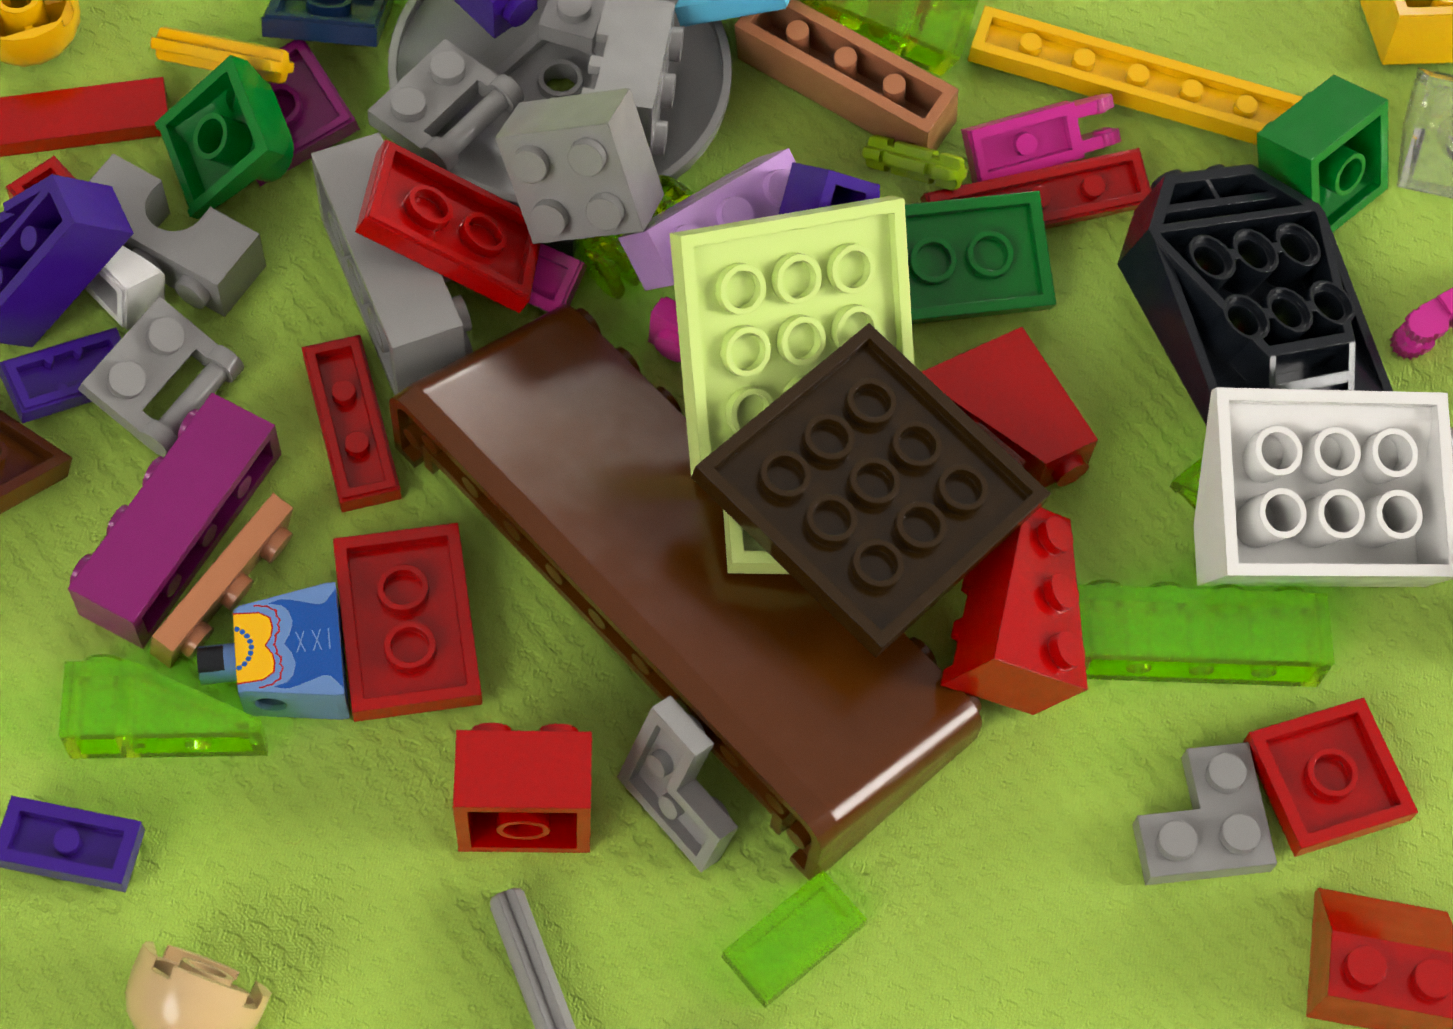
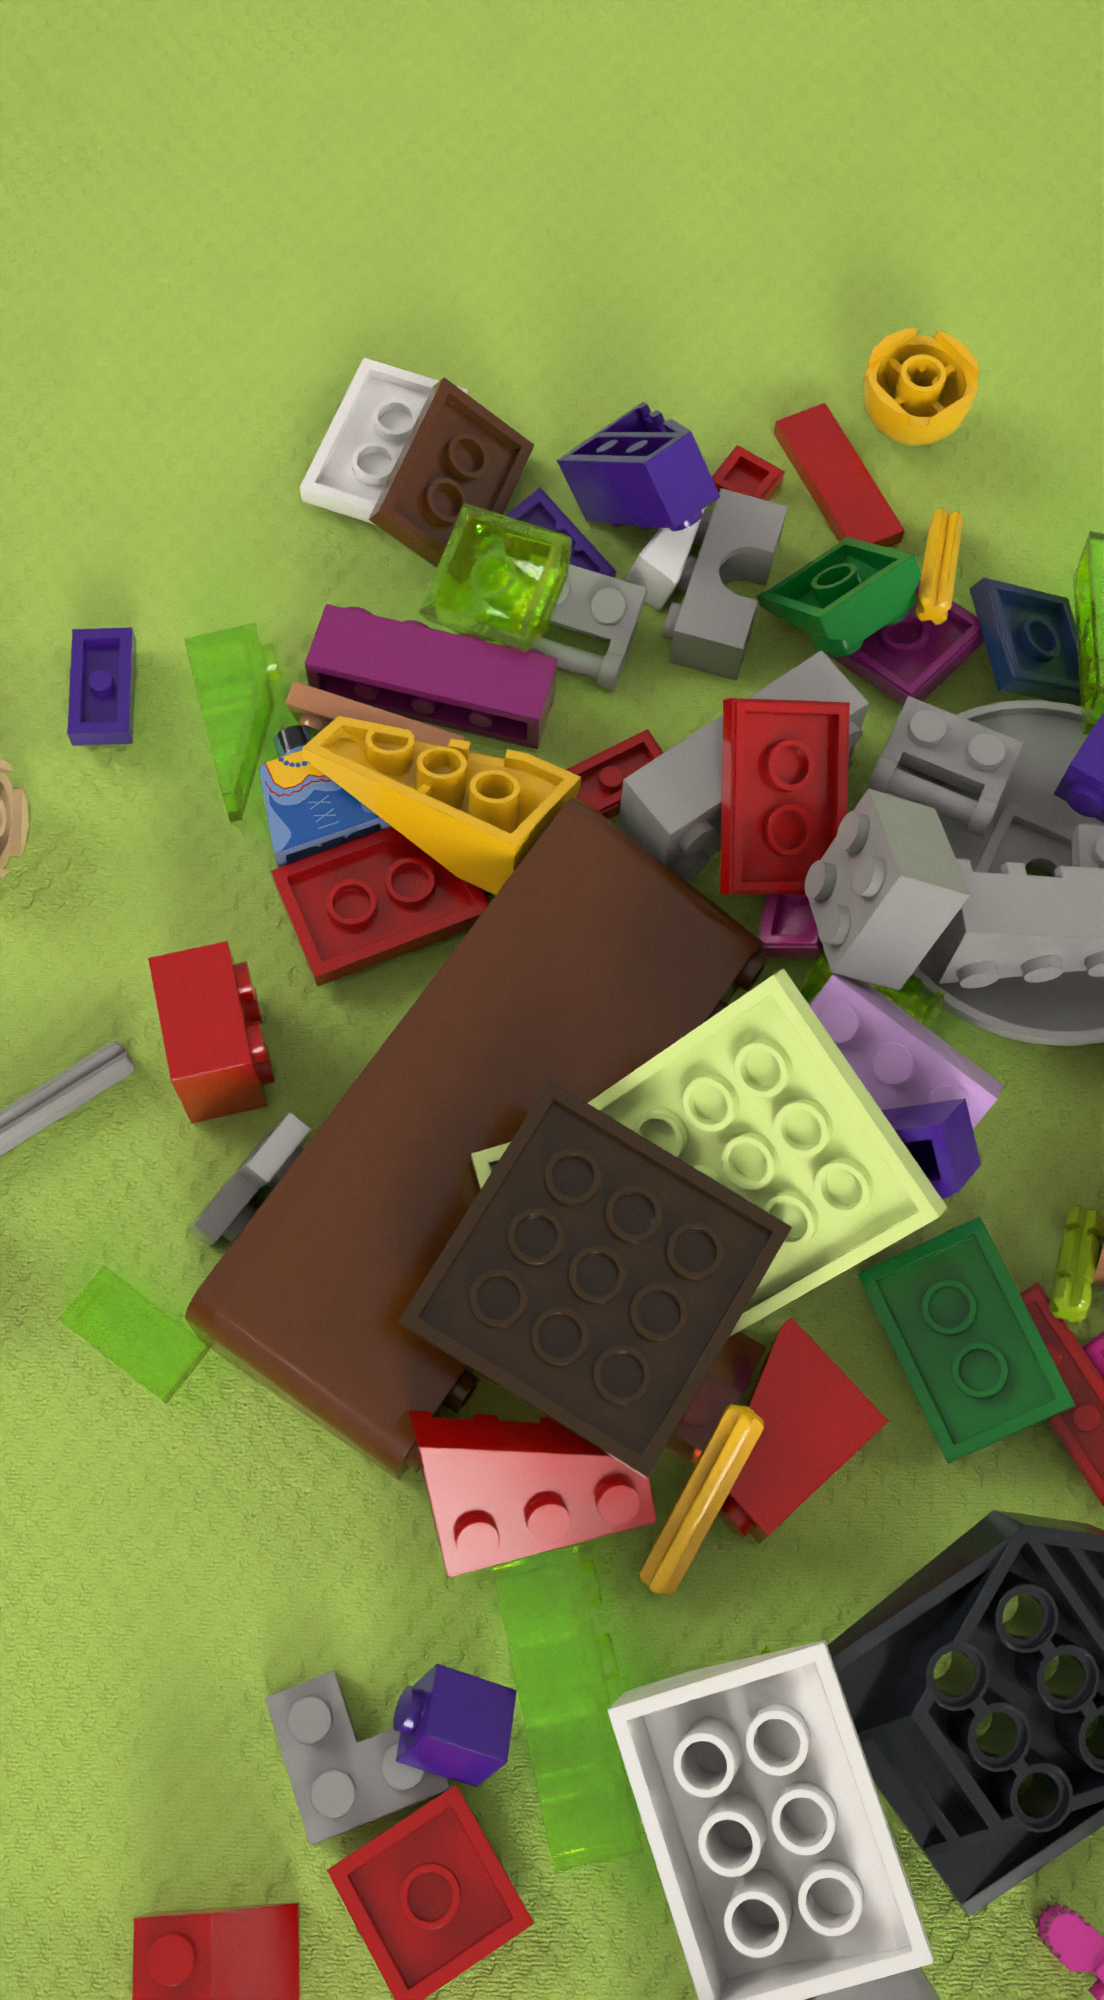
camera: 80 degrees right, 5 degrees up
(105, 418) = (498, 578): none -> clear neon green slope
(353, 507) = (454, 804): none -> yellow wedge
(1058, 478) = (701, 1499): none -> yellow axle
(1206, 715) = (455, 1725): none -> dark purple brick

